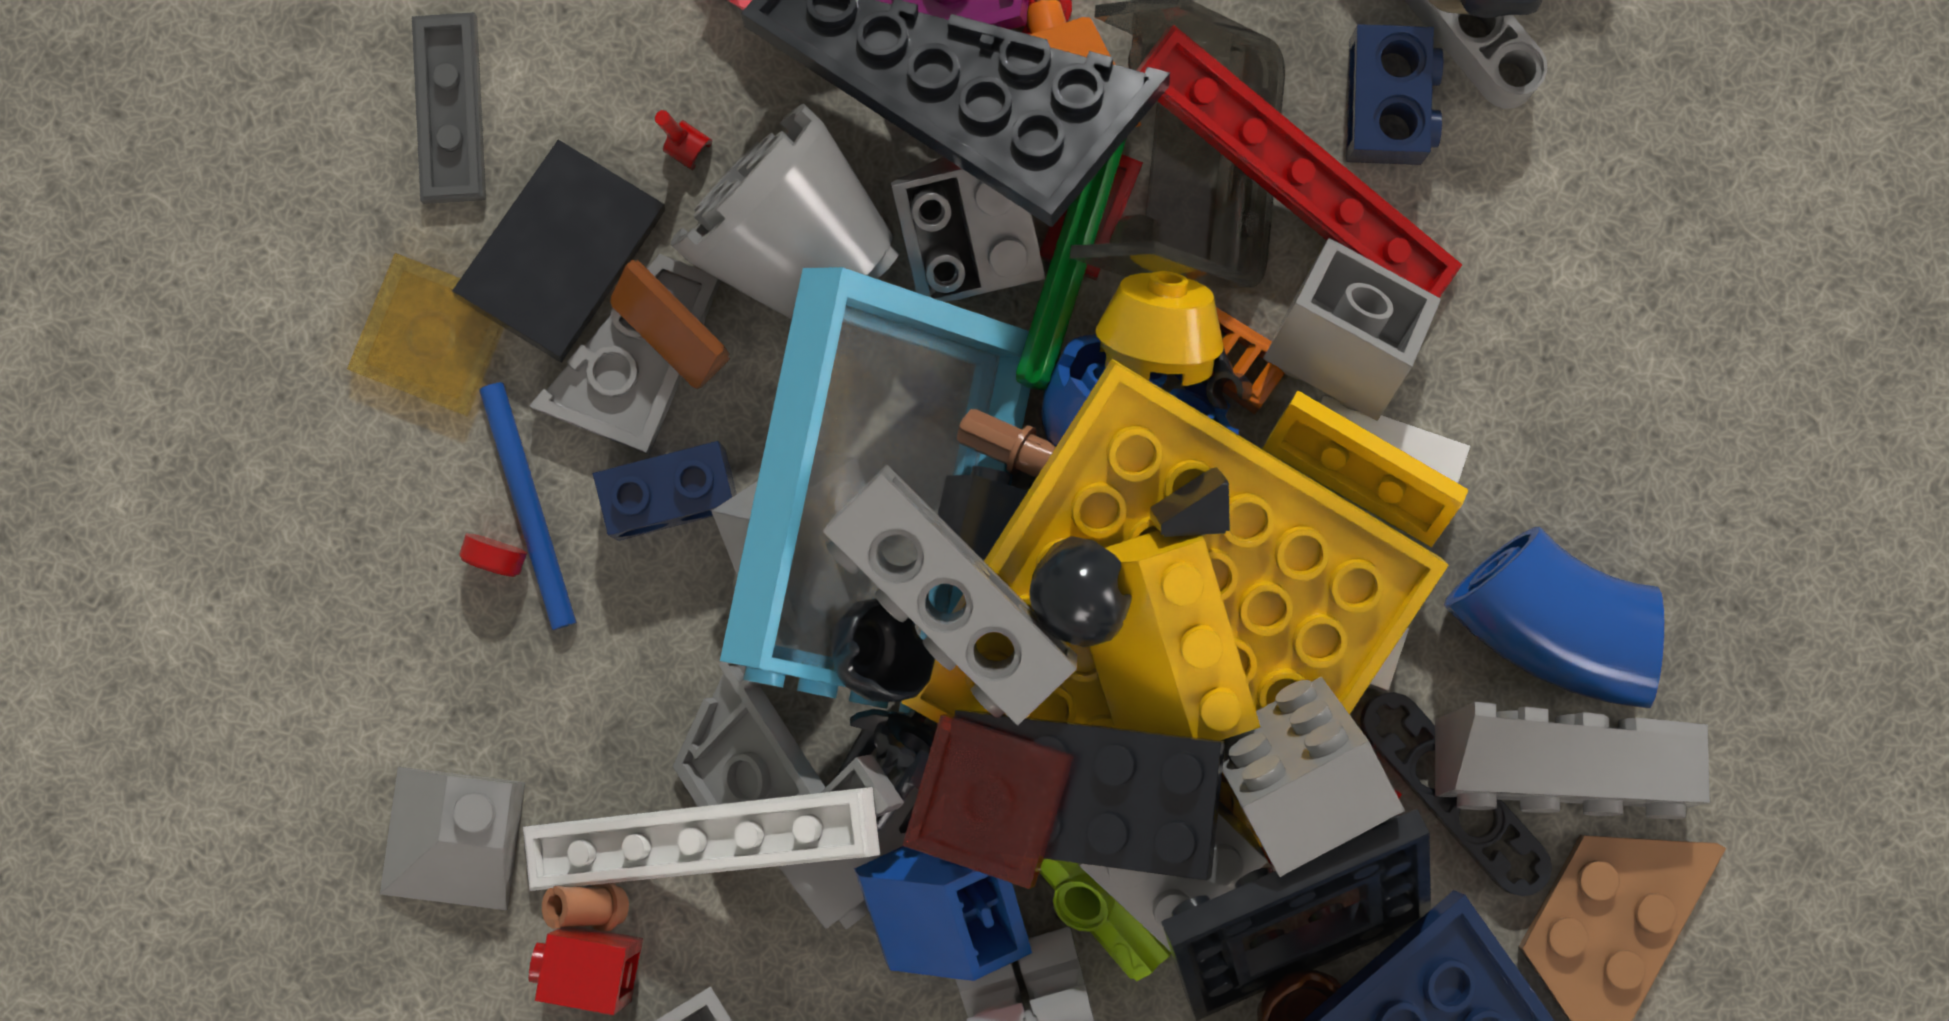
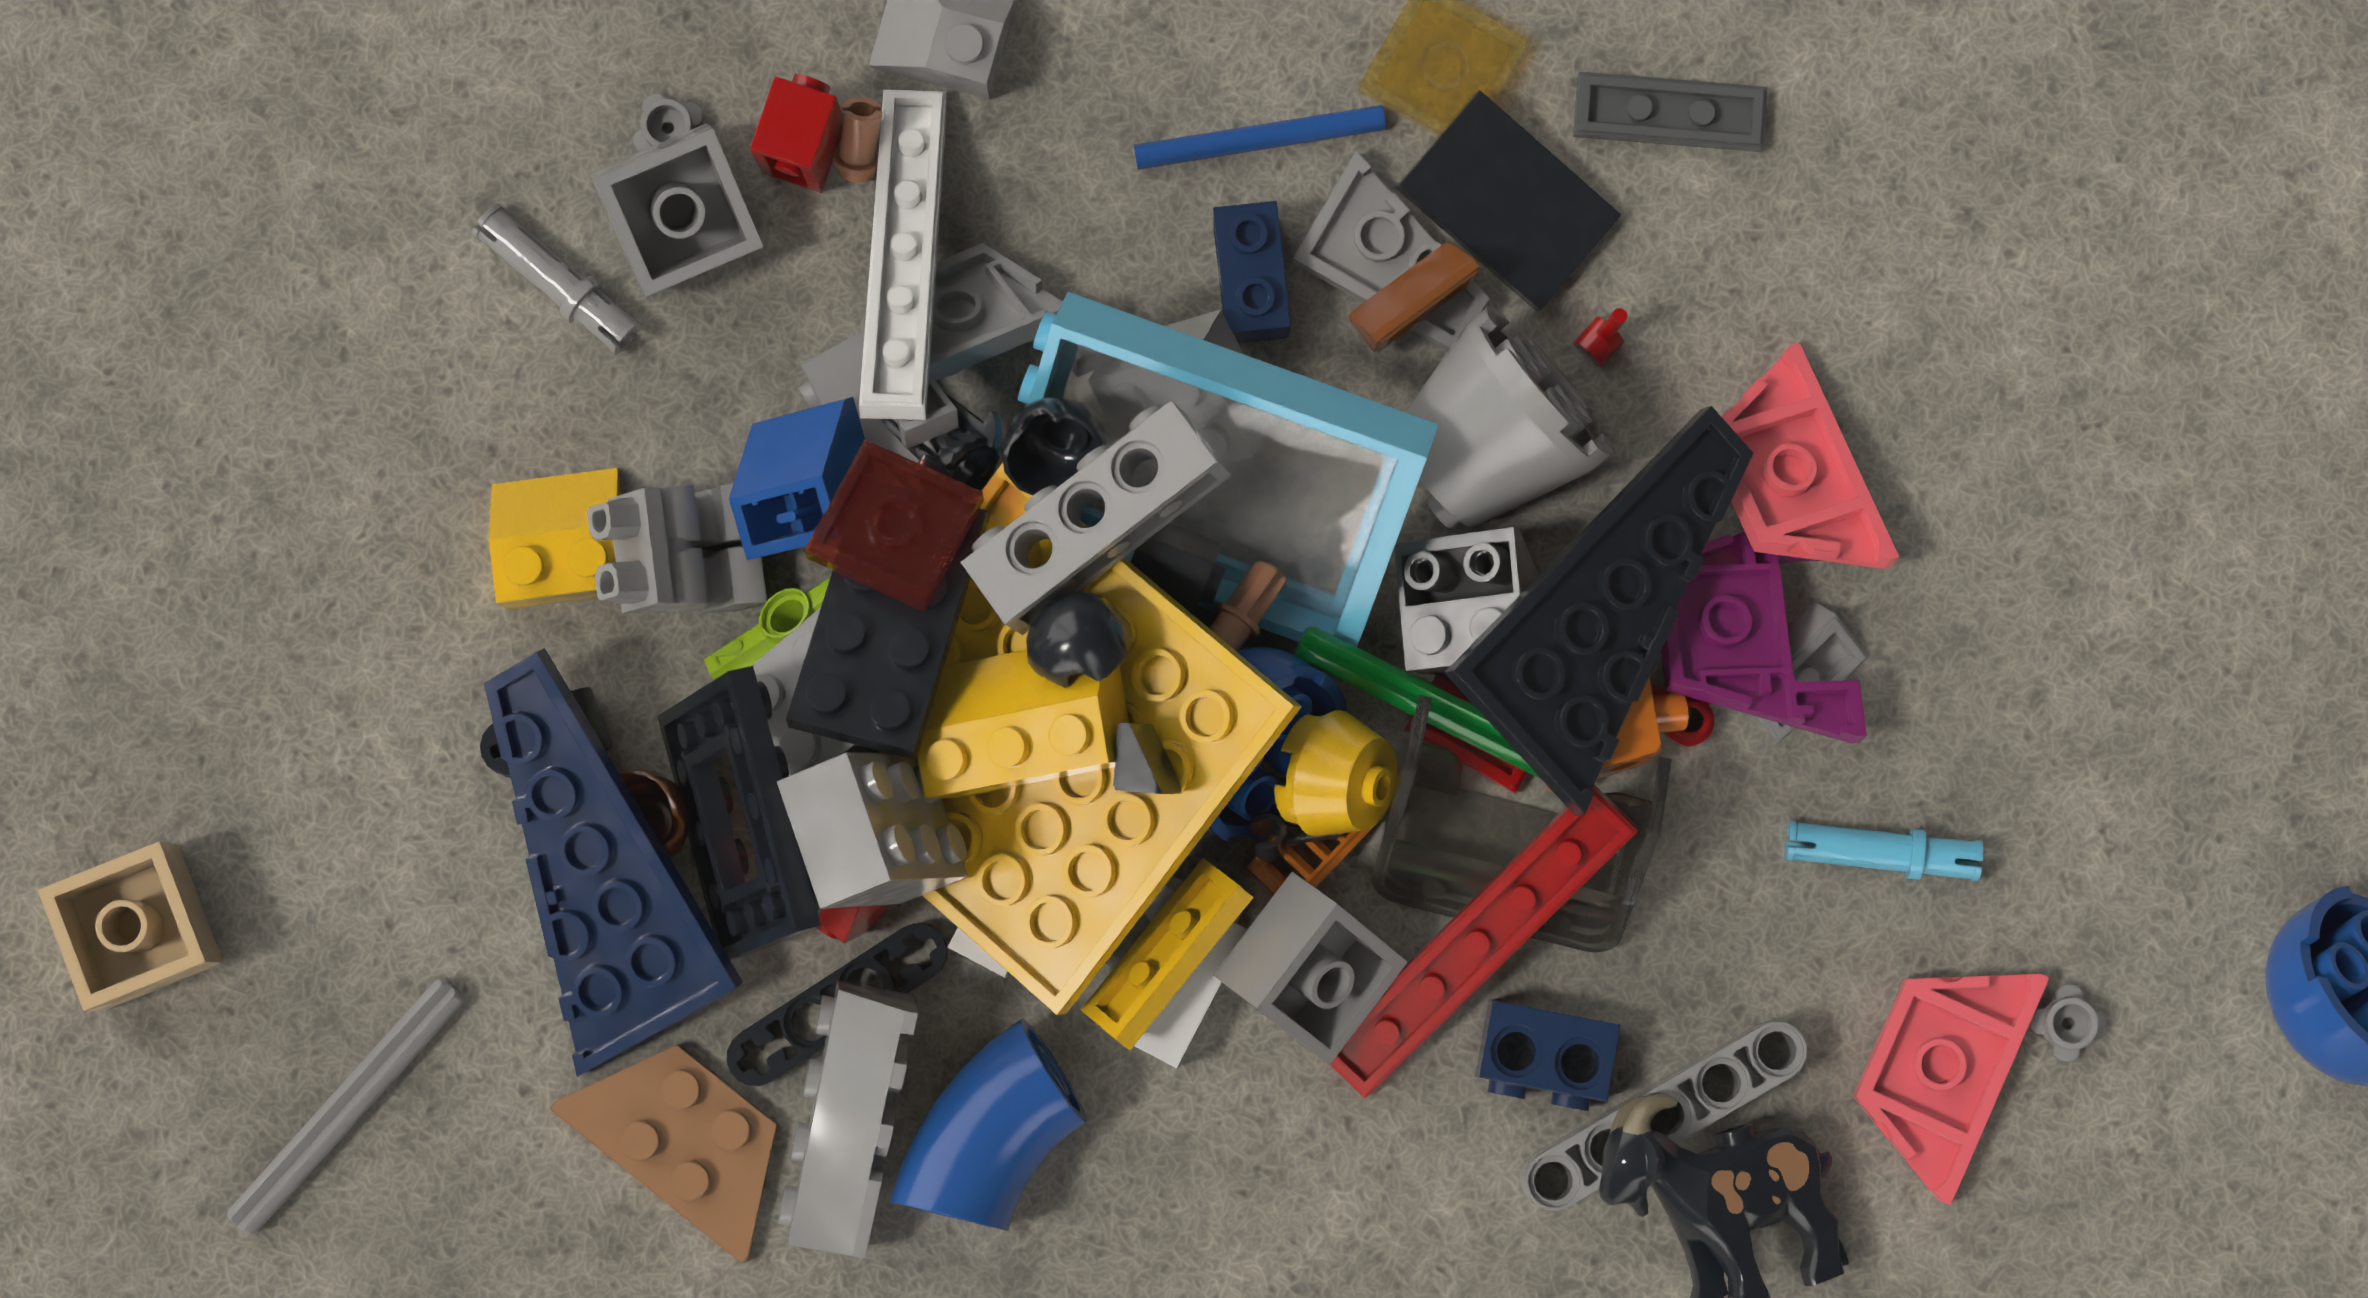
camera: 95 degrees right, 0 degrees up
(492, 555) = (1214, 96): red tile -> none

